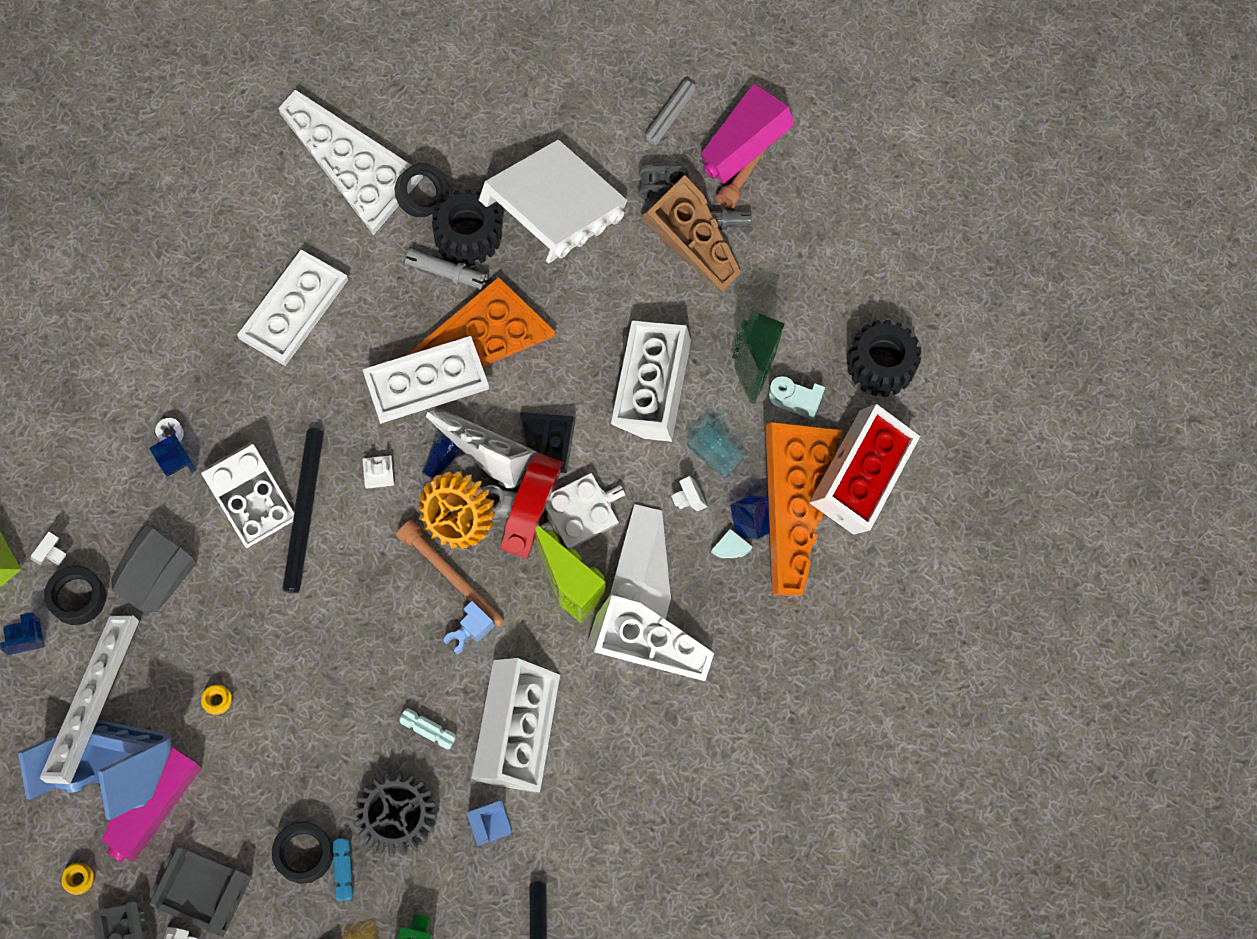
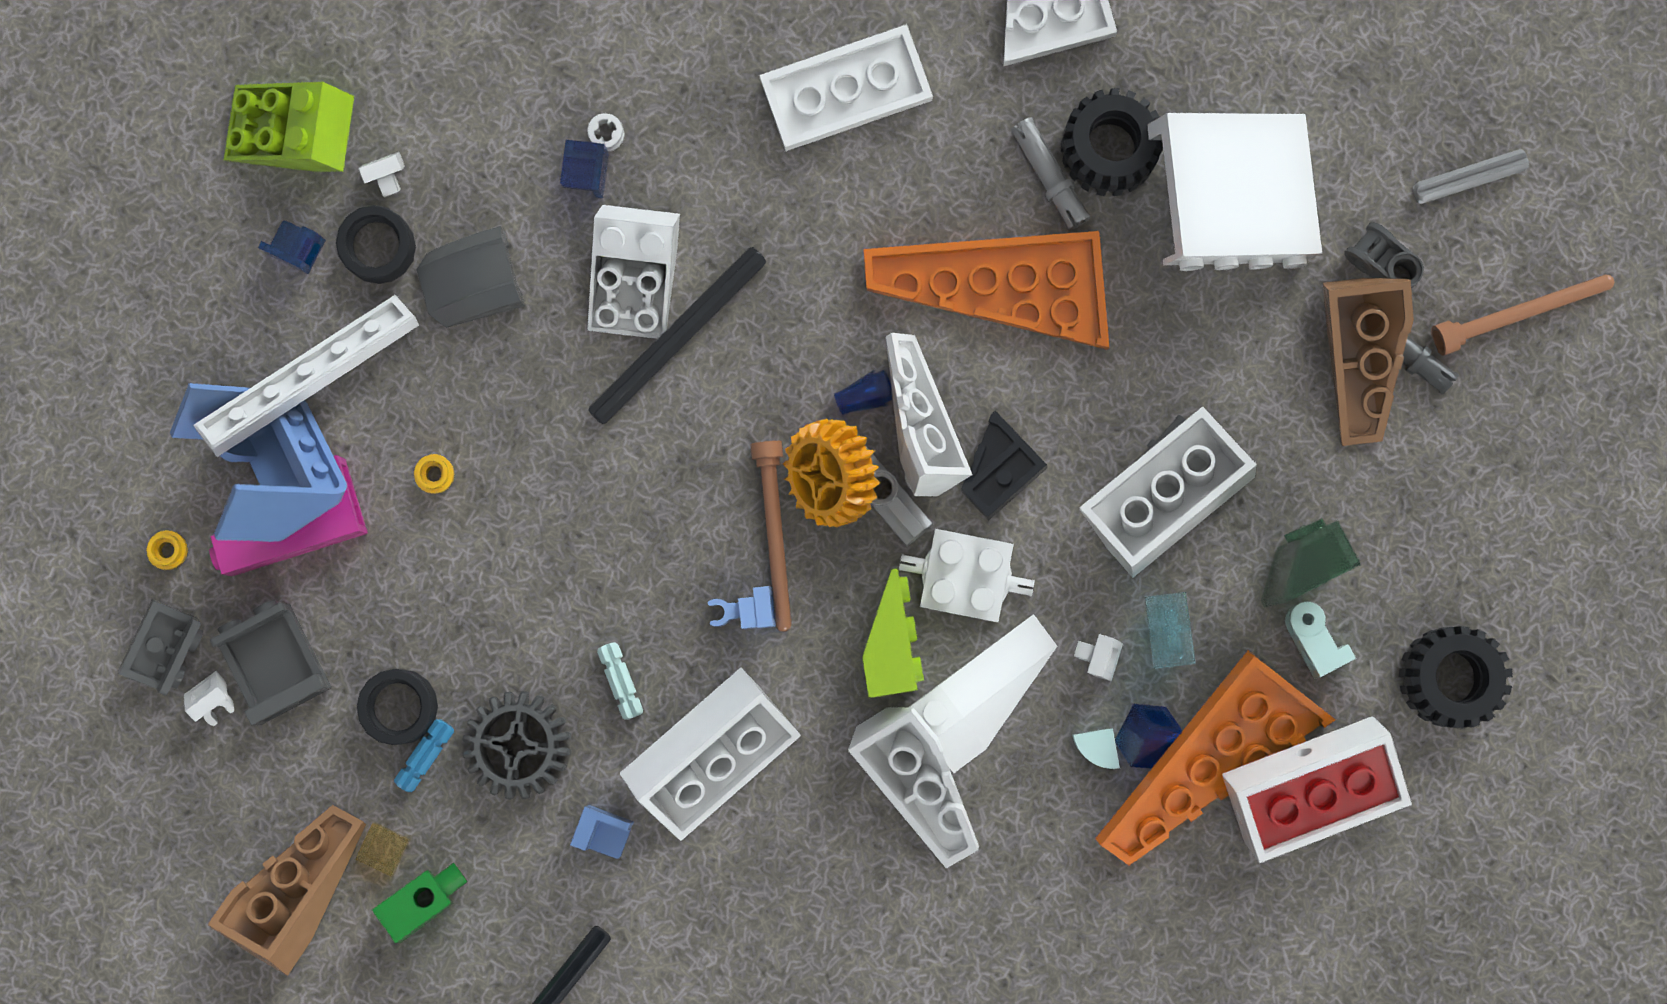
camera: 55 degrees right, 15 degrees up
(378, 471) = (789, 355): white tile -> none
(403, 198) = (1073, 38): black tyre -> none
(425, 379) = (918, 293): white plate -> none
(530, 504) = (919, 528): red arch -> none
(746, 133) = (1535, 277): dark pink slope -> none

